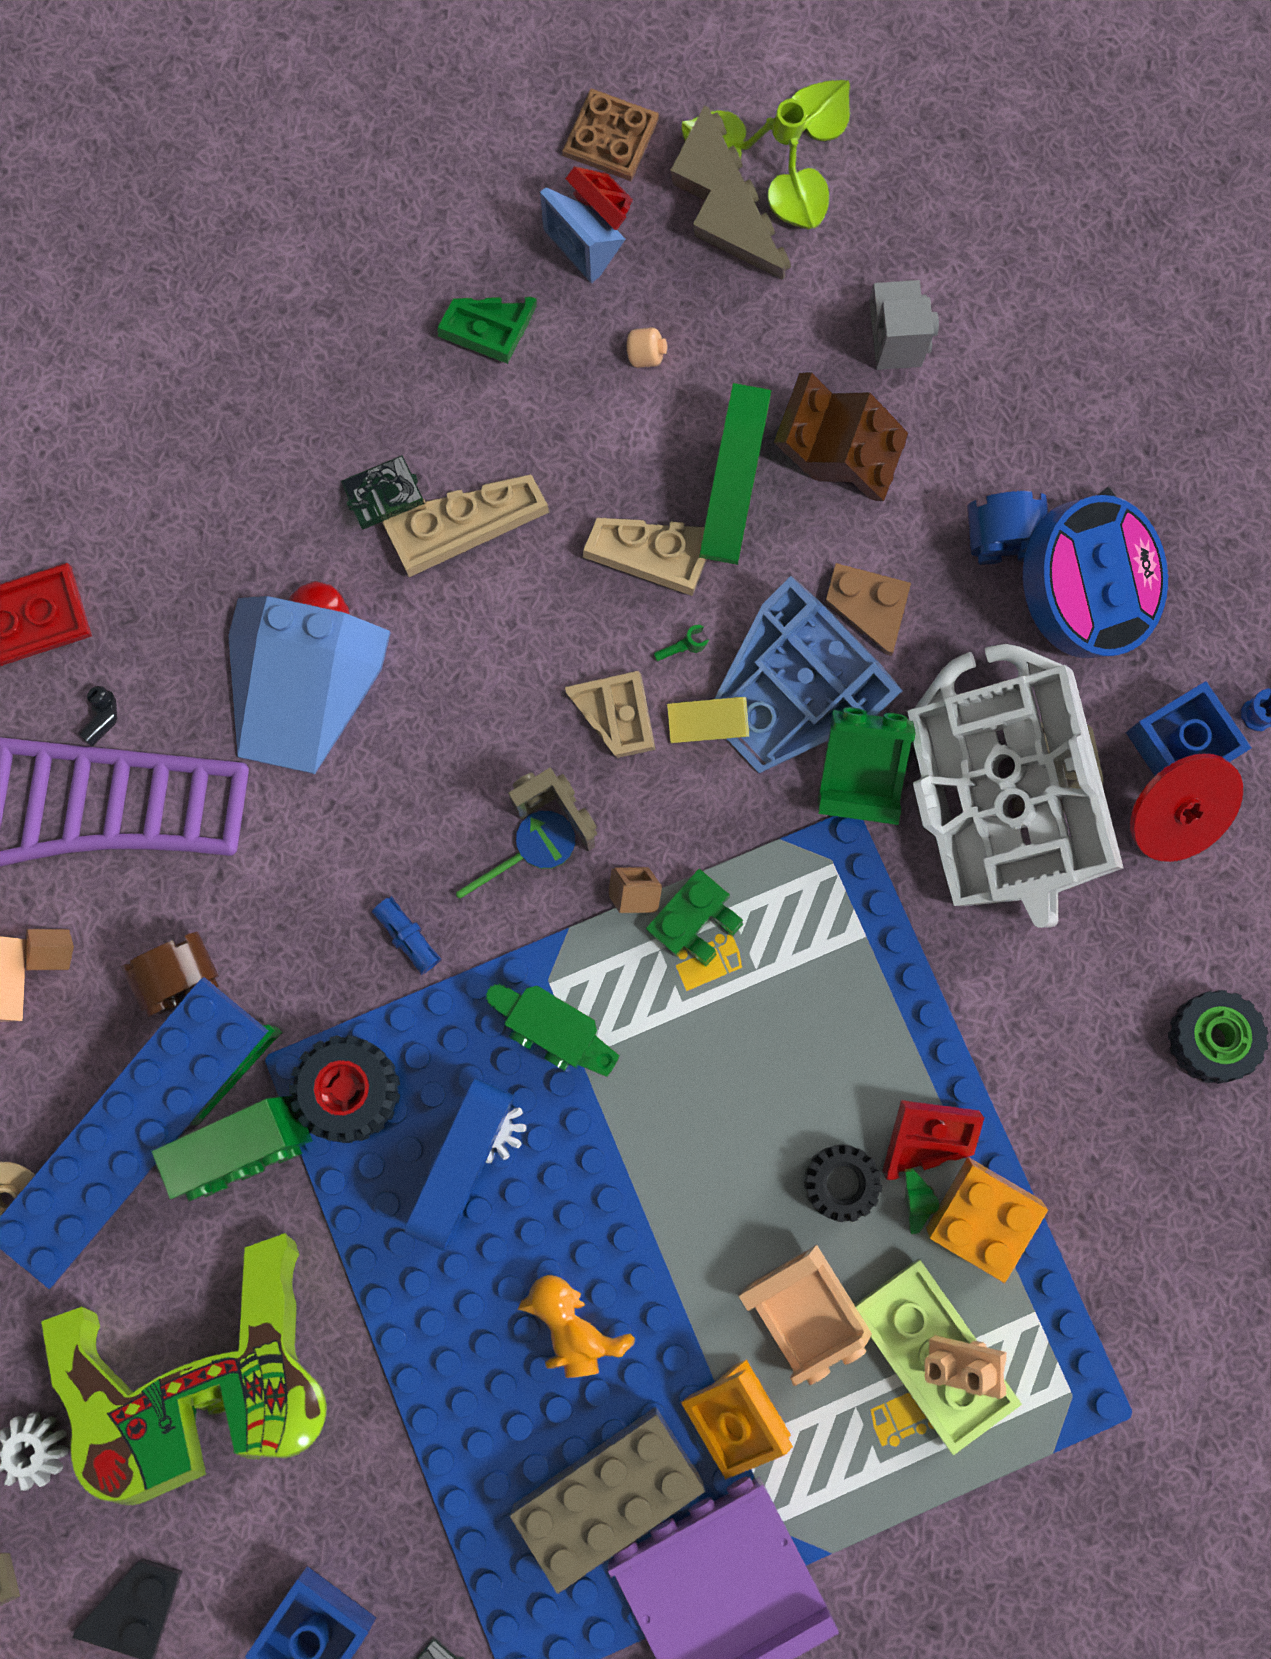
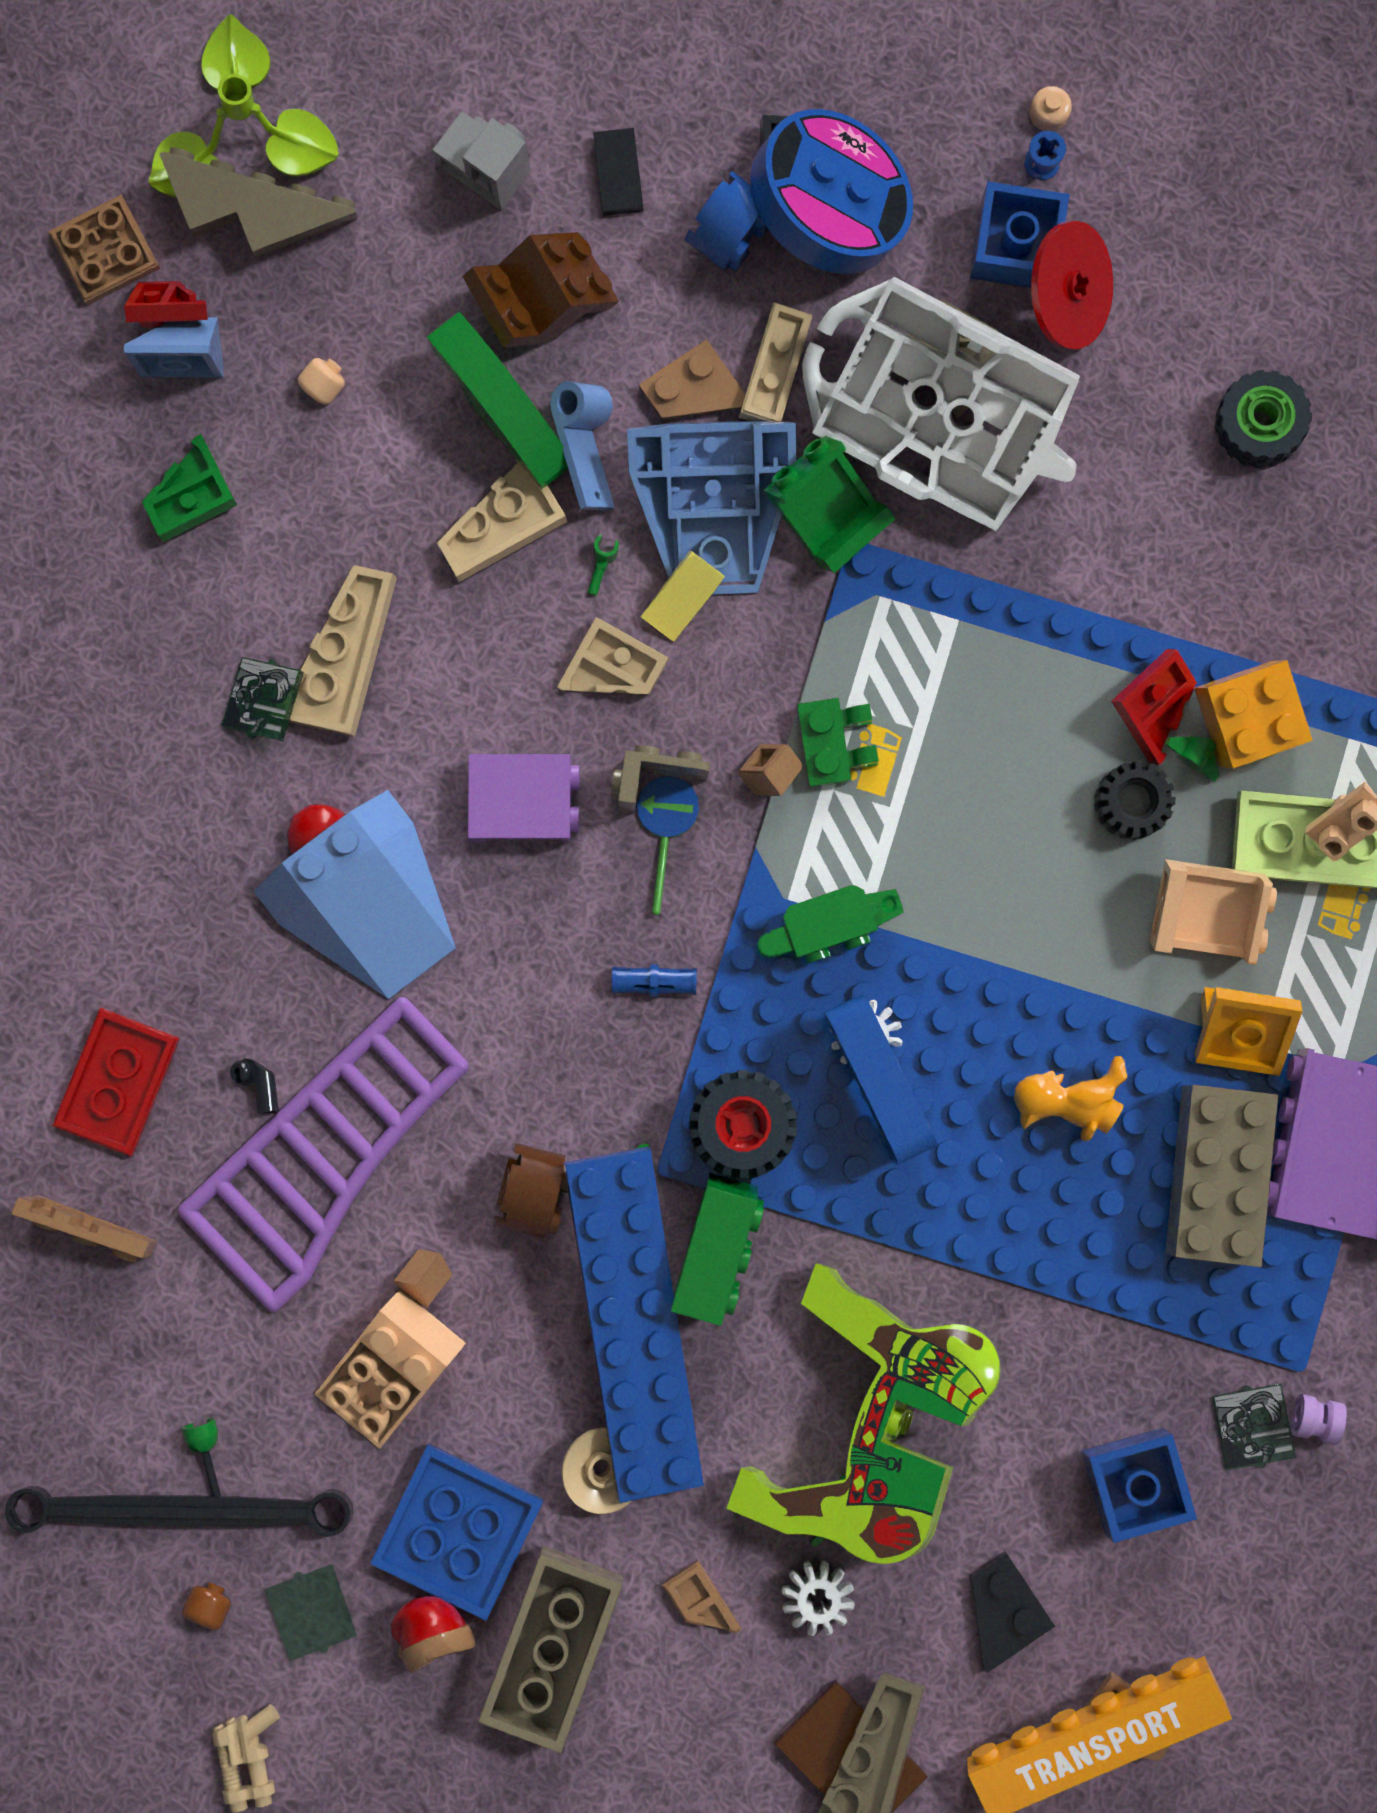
camera: 55 degrees left, 5 degrees up
(461, 728) = (522, 797): none -> medium lavender panel
(773, 536) = (576, 412): none -> medium blue door
(935, 646) = (775, 364): none -> tan tile
(976, 424) = (618, 171): none -> black tile

